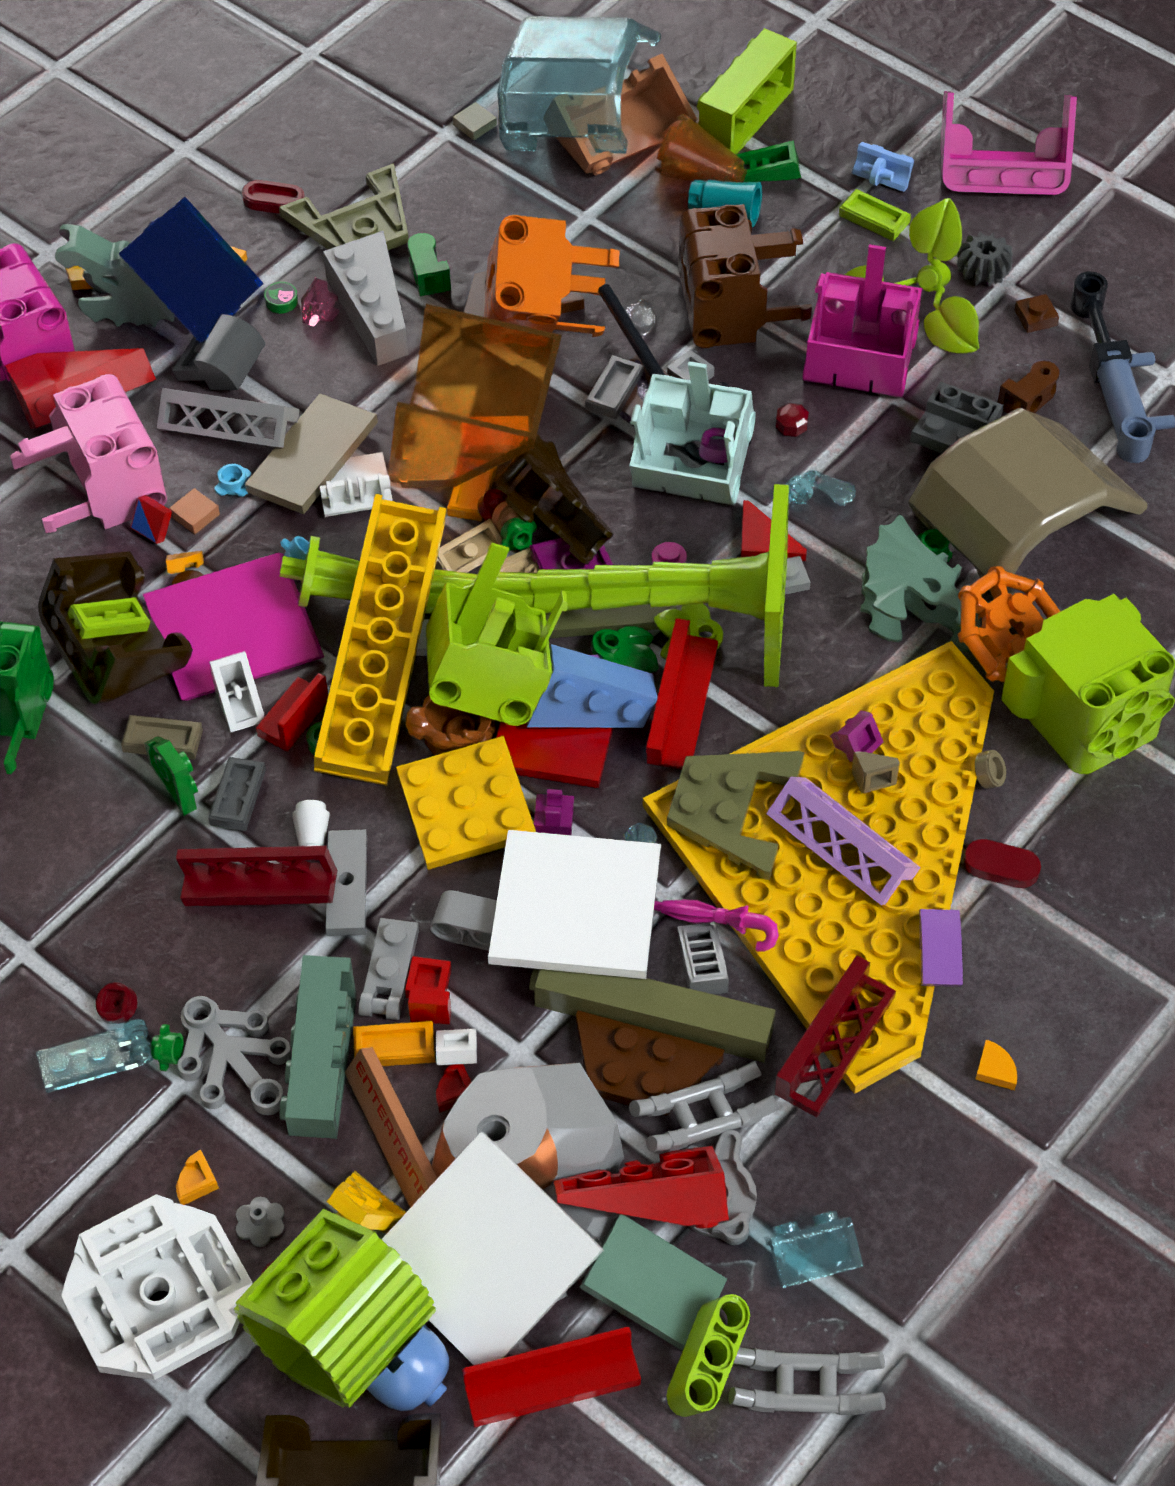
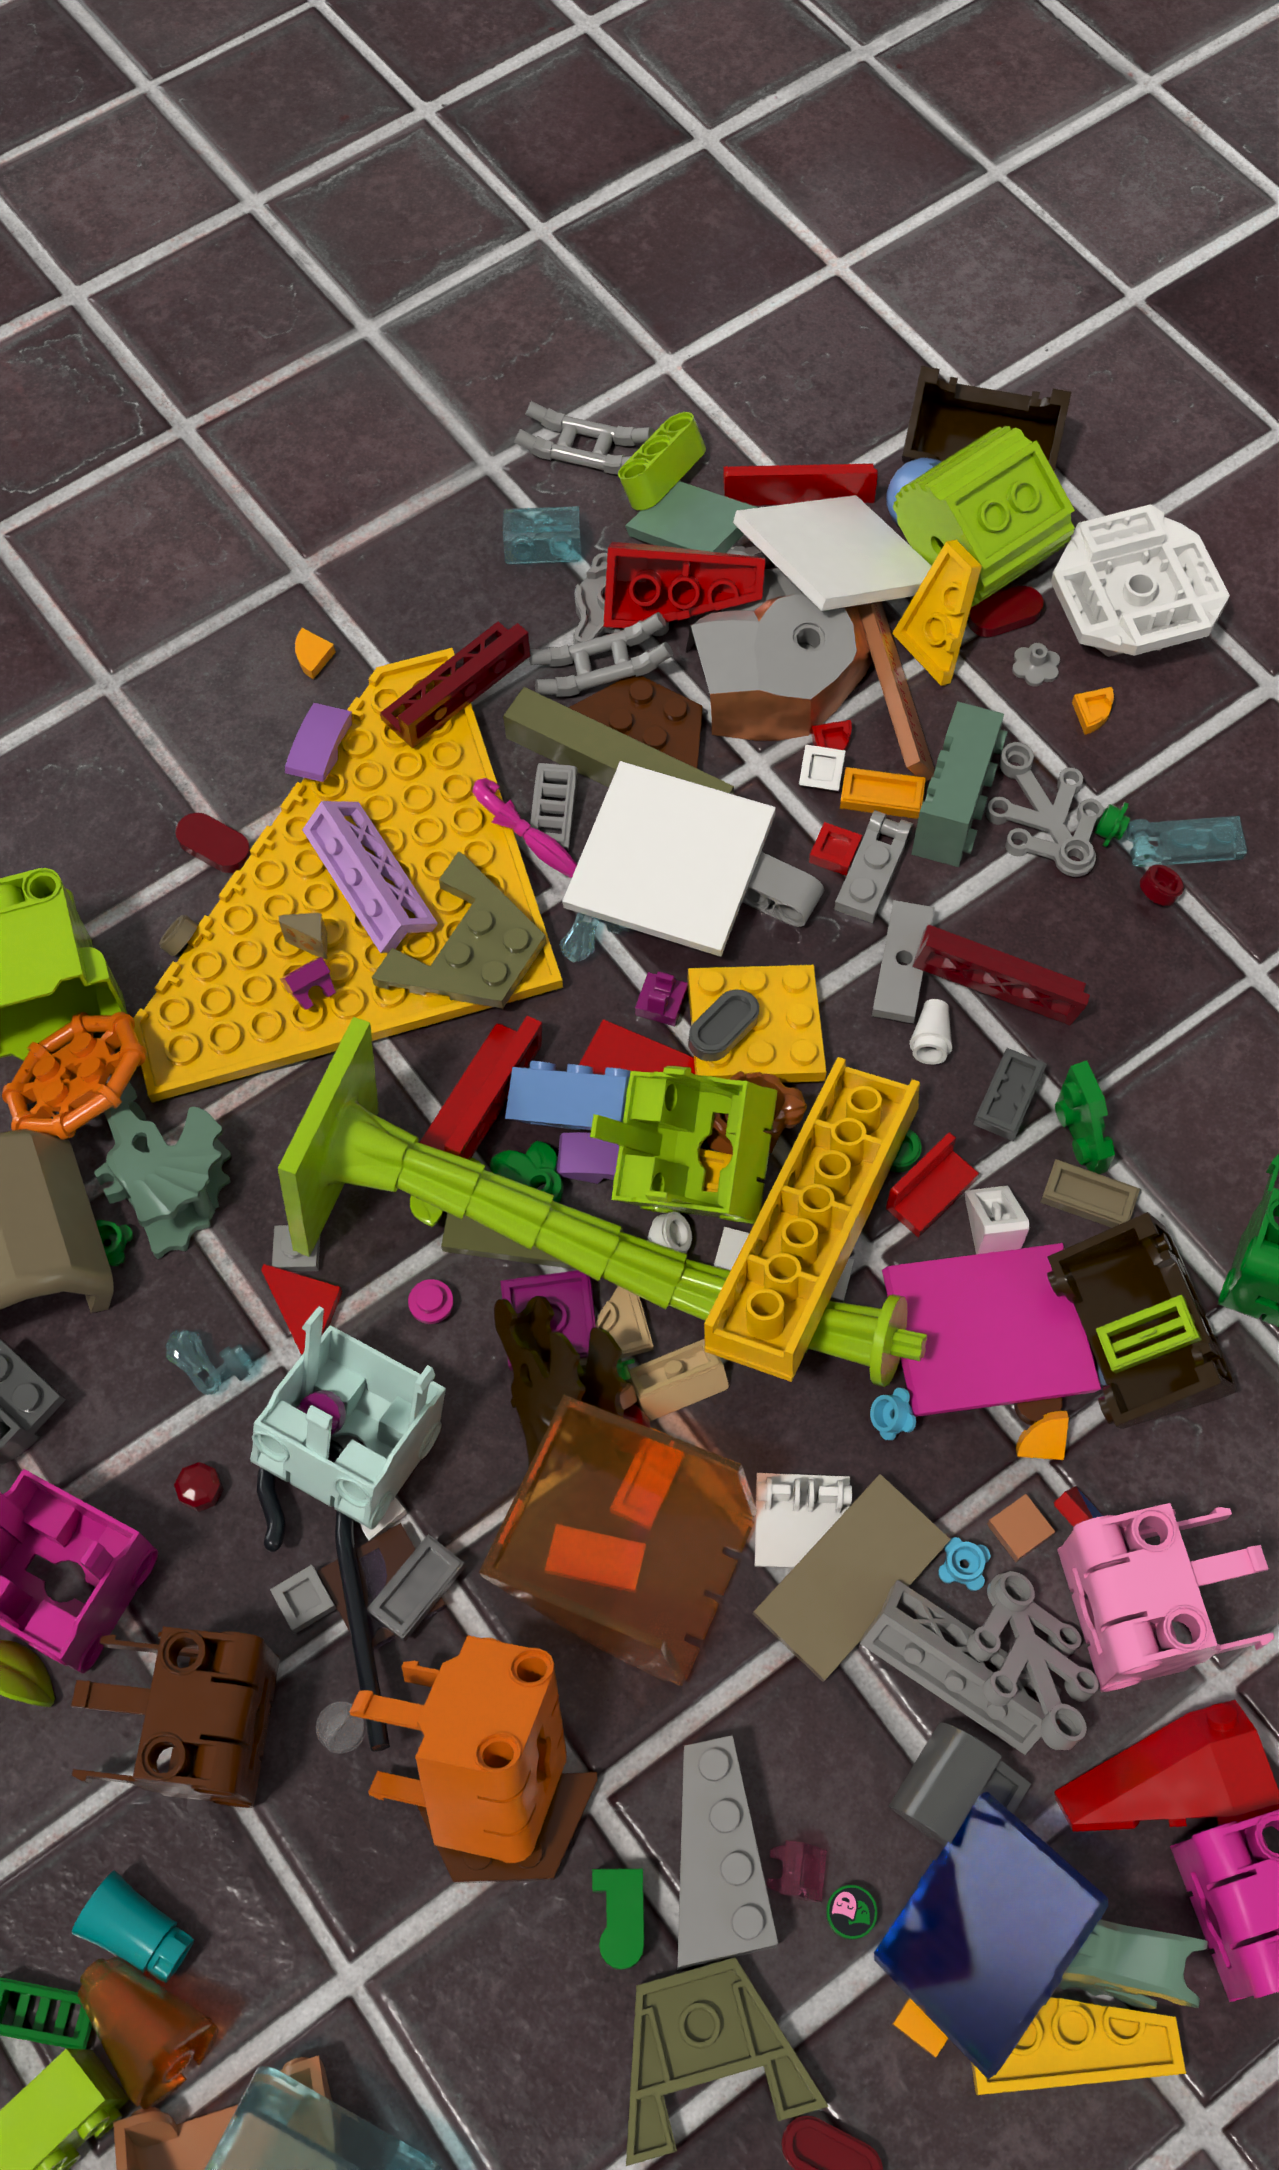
camera: 165 degrees left, 10 degrees up
(180, 424) = (1013, 1602): none -> light grey plant
(429, 1006) = (841, 808): red tile -> none
(490, 771) = (723, 1025): none -> dark grey tile

